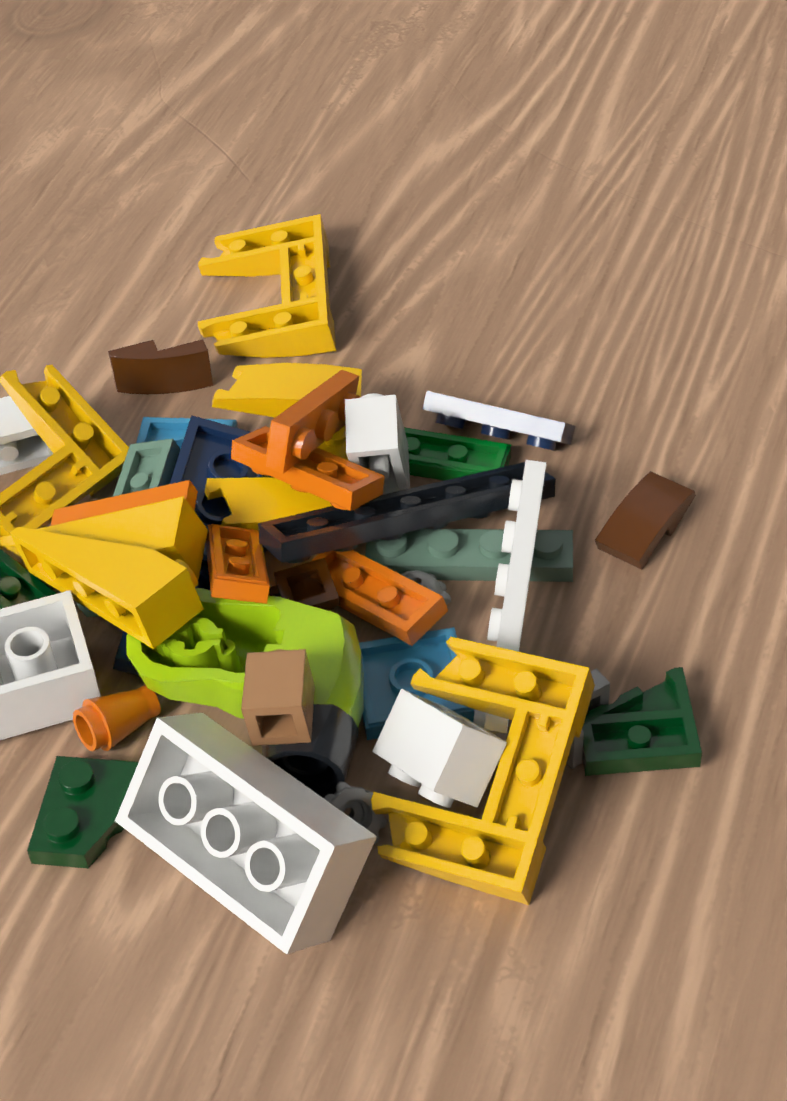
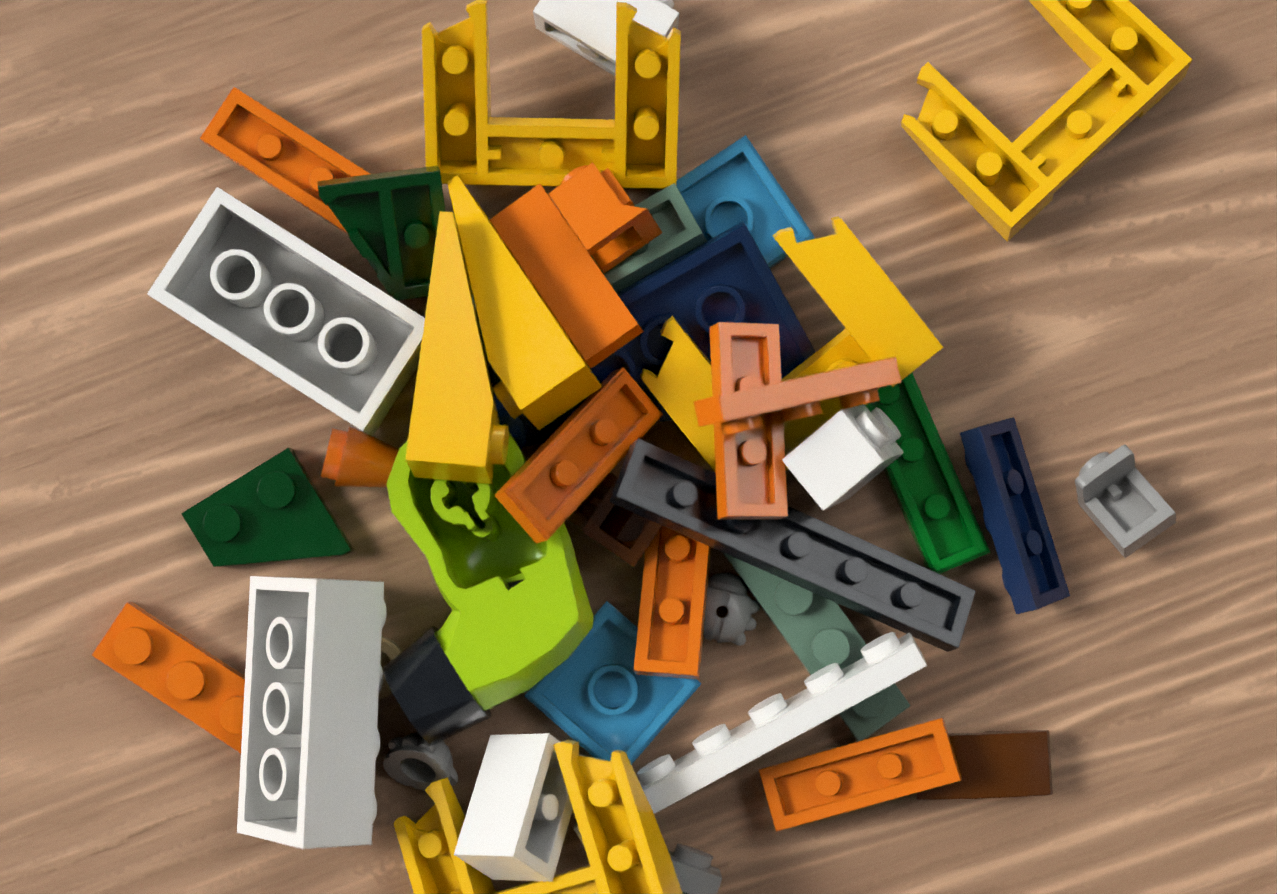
camera: 45 degrees right, 40 degrees up
(108, 470) = (603, 215): none -> orange window
(141, 937) = (176, 672): none -> orange plate
(171, 370) = (809, 78): reddish brown slope -> none
(278, 697) = (427, 659): medium nougat brick -> none
(538, 372) = (1122, 501): none -> light grey bracket
(593, 572) = (860, 774): none -> orange plate

